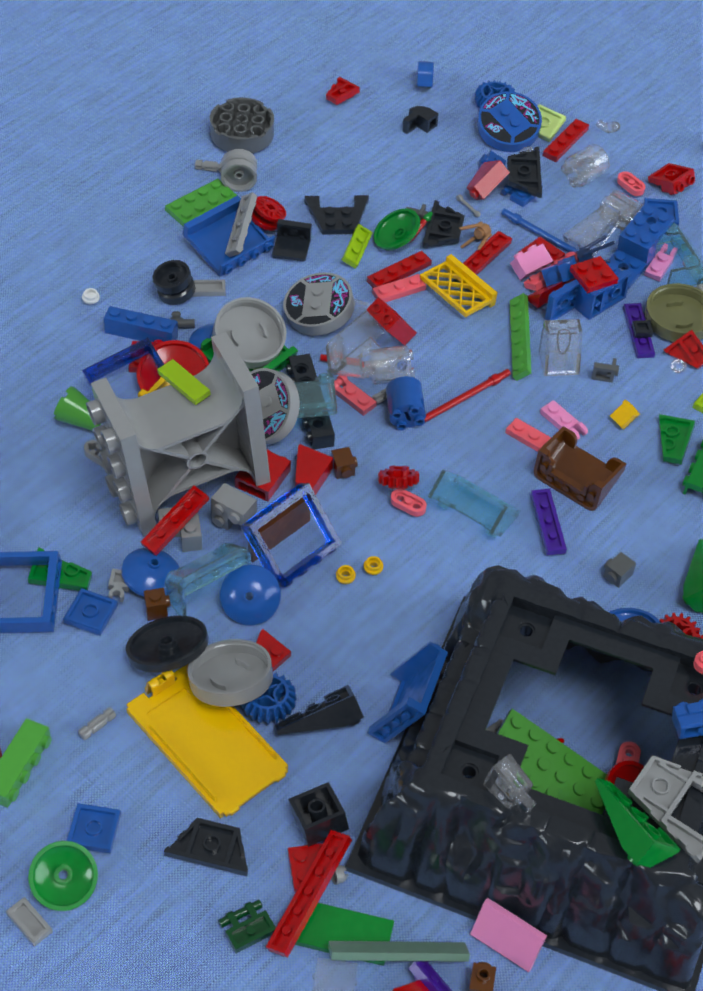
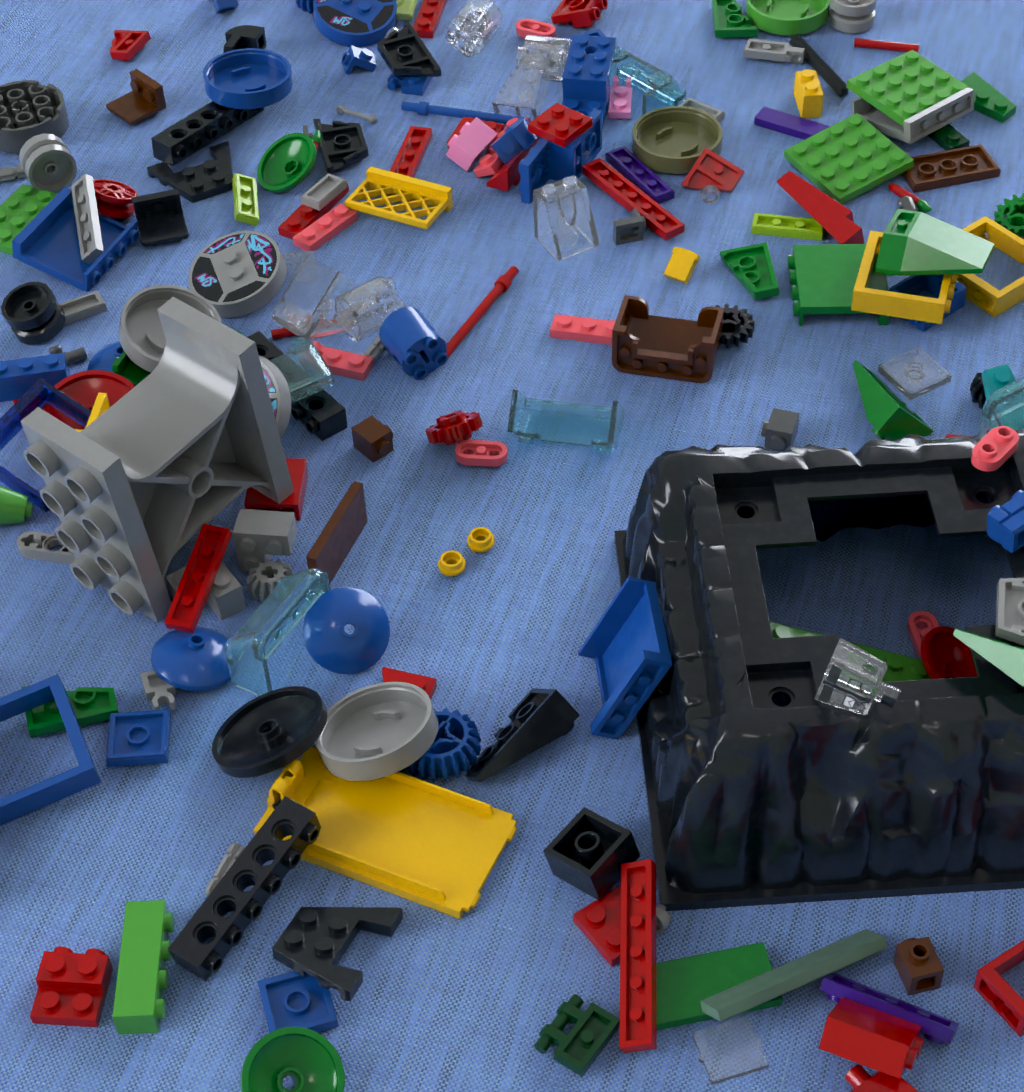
camera: 20 degrees left, 5 degrees down
(89, 738) = (229, 895): none -> black brick
(130, 791) = (322, 935): none -> black wing
(156, 603) = (224, 692): reddish brown brick -> none
(184, 382) = (141, 385): lime tile -> none
(211, 846) = (471, 956): black wing -> none
(224, 534) = (265, 577): none -> light grey gear
(252, 525) = (325, 559): clear blue window -> none
(312, 467) = (335, 461): red slope -> none
(325, 142) = (140, 103): none -> reddish brown bracket
(361, 177) = (198, 131): none -> black brick
(391, 321) = (342, 258): red window -> none
(402, 153) = (247, 78): none -> blue brick
(410, 261) = (323, 191): none -> light grey tile
(482, 231) = (391, 134): medium nougat plant -> none
(486, 179) = (365, 75): slope -> none
(508, 934) = (918, 892): bright pink tile -> none
(520, 337) = (506, 227): bright green plate -> none
(548, 522) = (664, 411): dark purple plate -> none
(560, 417) = (606, 296): bright pink hinge -> none
(586, 254) = (531, 112): dark blue plant -> none
(622, 348) = (632, 197): none -> red plate
(630, 477) = (731, 330): none -> black gear
(642, 328) = (644, 170): black tile -> none

